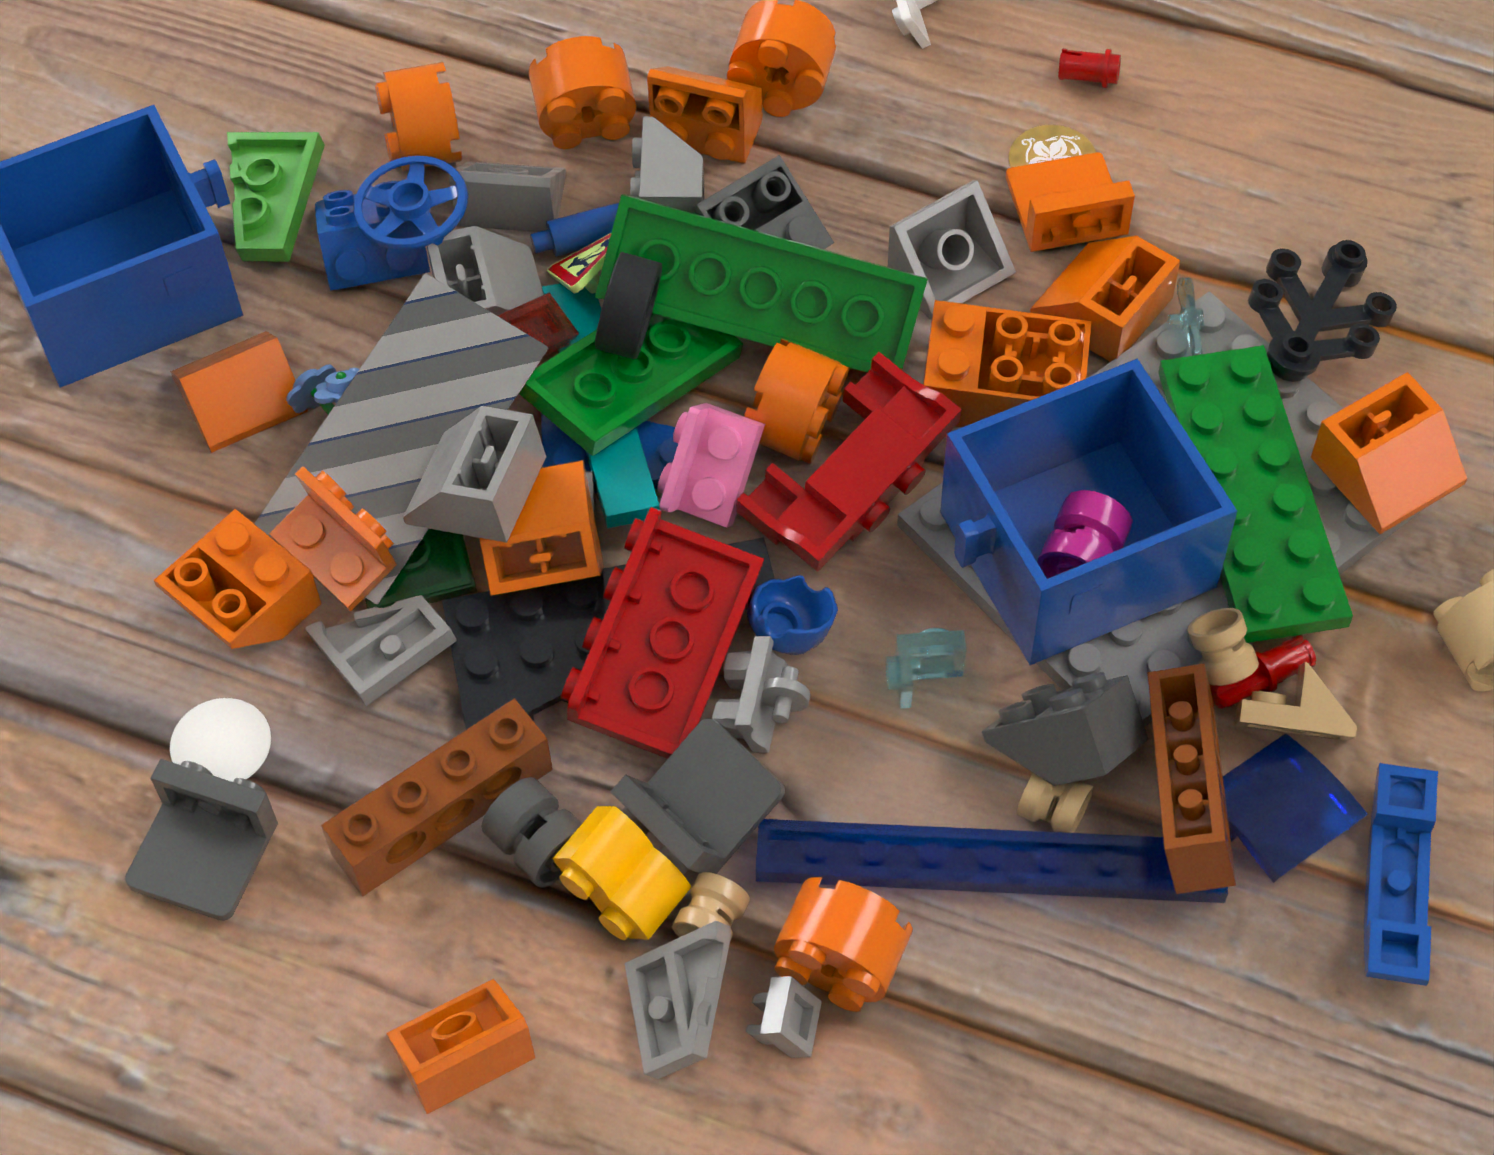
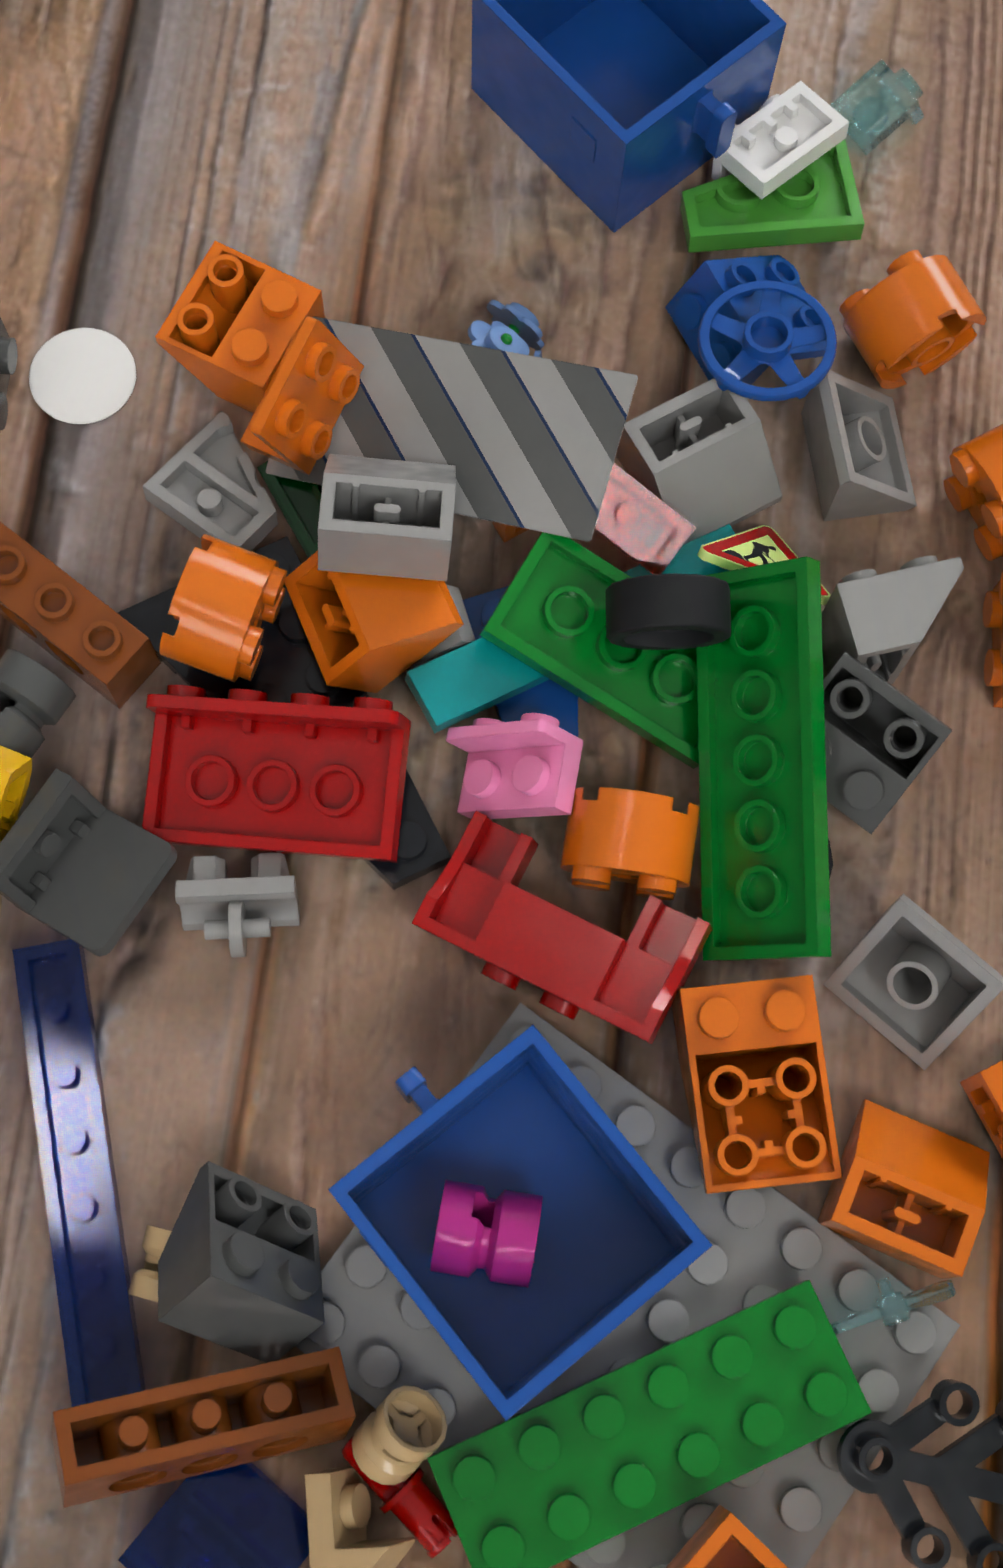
camera: 70 degrees right, 15 degrees up
(212, 102) = (879, 105): none -> clear light blue bracket
(238, 390) = (506, 249): orange slope -> none
(240, 172) = (781, 140): none -> white bracket
(513, 627) = (222, 607): none -> orange brick
(575, 231) = (819, 539): blue cylinder -> none
(791, 614) = (346, 909): blue hair -> none
(922, 656) = (336, 1082): clear light blue bracket -> none

